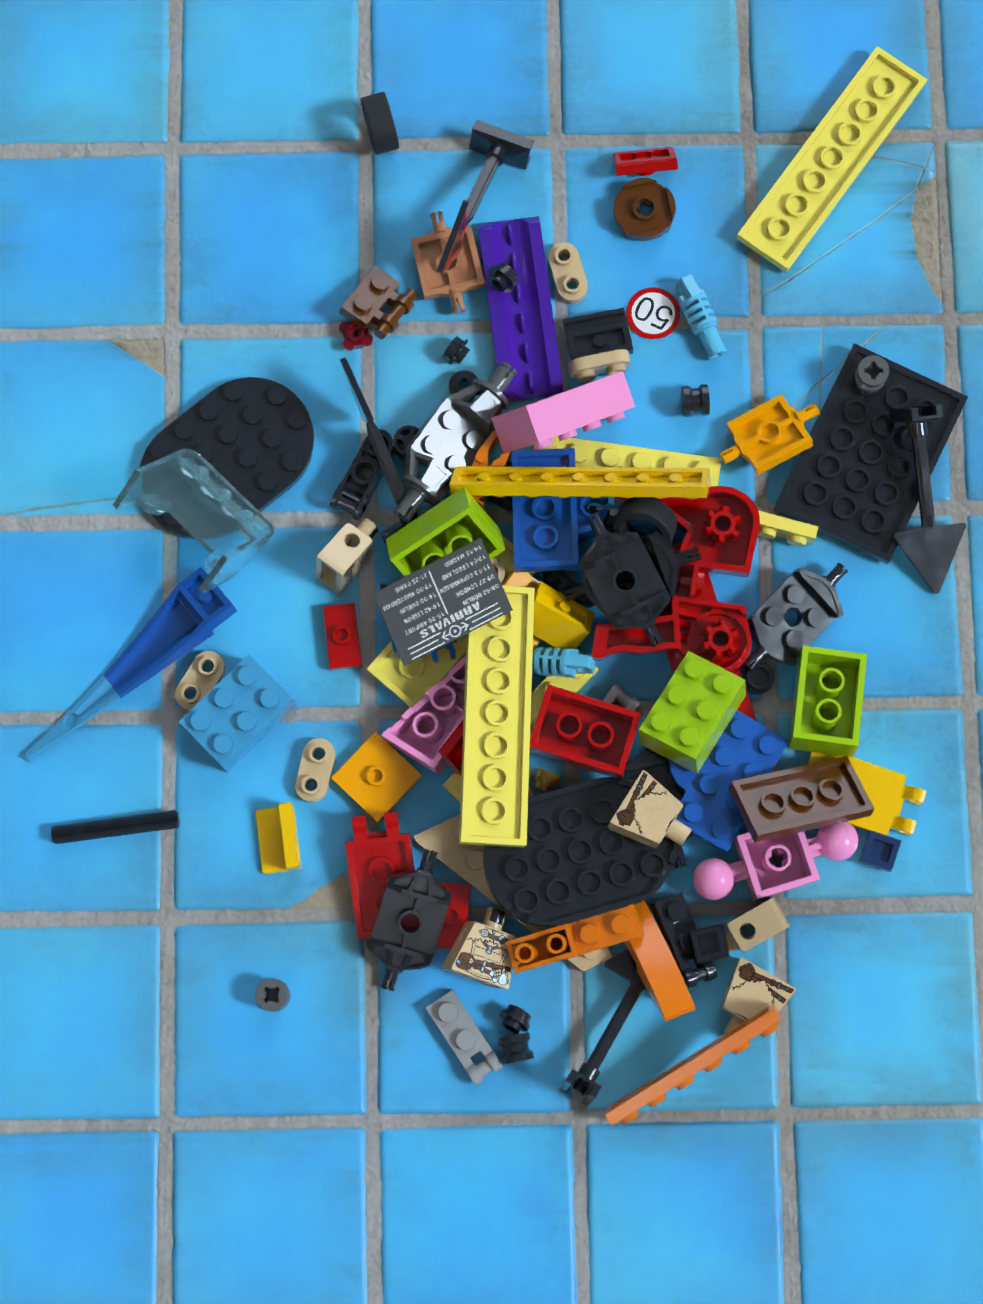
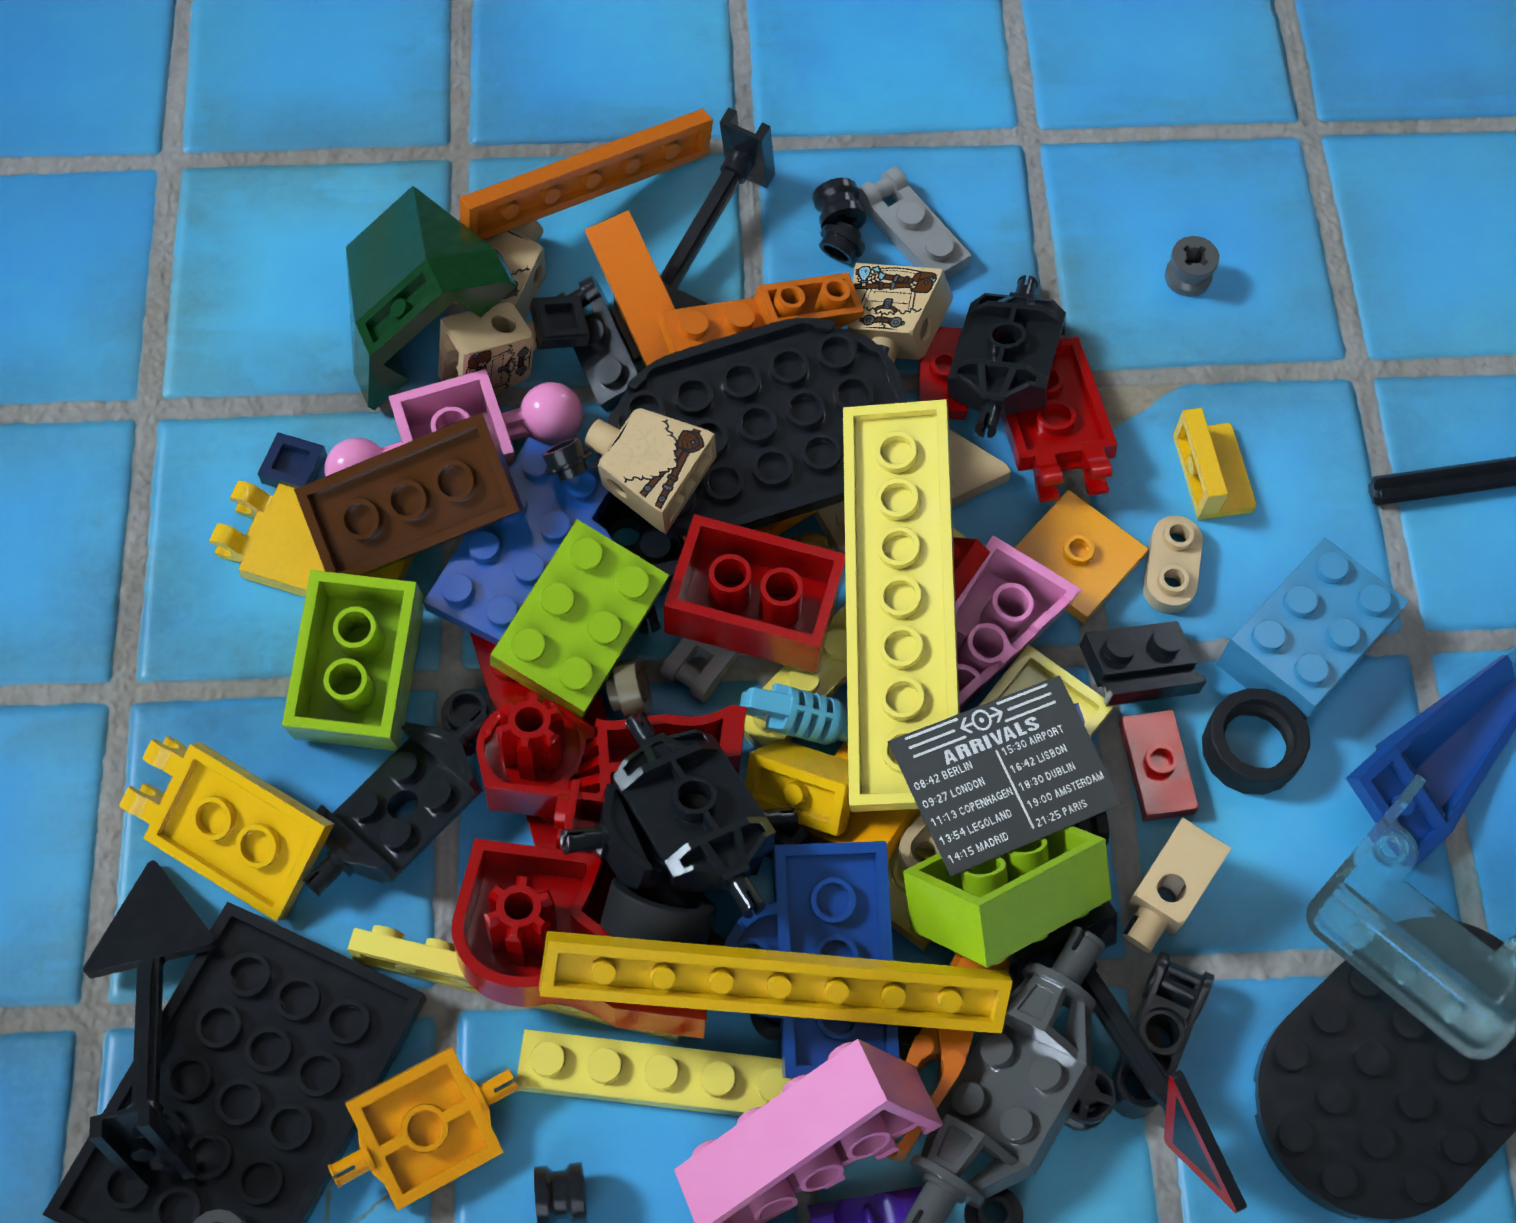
camera: 175 degrees right, 15 degrees down
(200, 680) = (1379, 687): tan plate -> none
(265, 630) = (1281, 715): none -> black tyre
(345, 697) = (1142, 663): none -> black plate
(658, 676) = (630, 687): none -> dark tan plate
(703, 820) = (566, 459): none -> black plate
(809, 975) = (405, 276): none -> dark green wedge
(896, 606) = (229, 825): none -> yellow tile

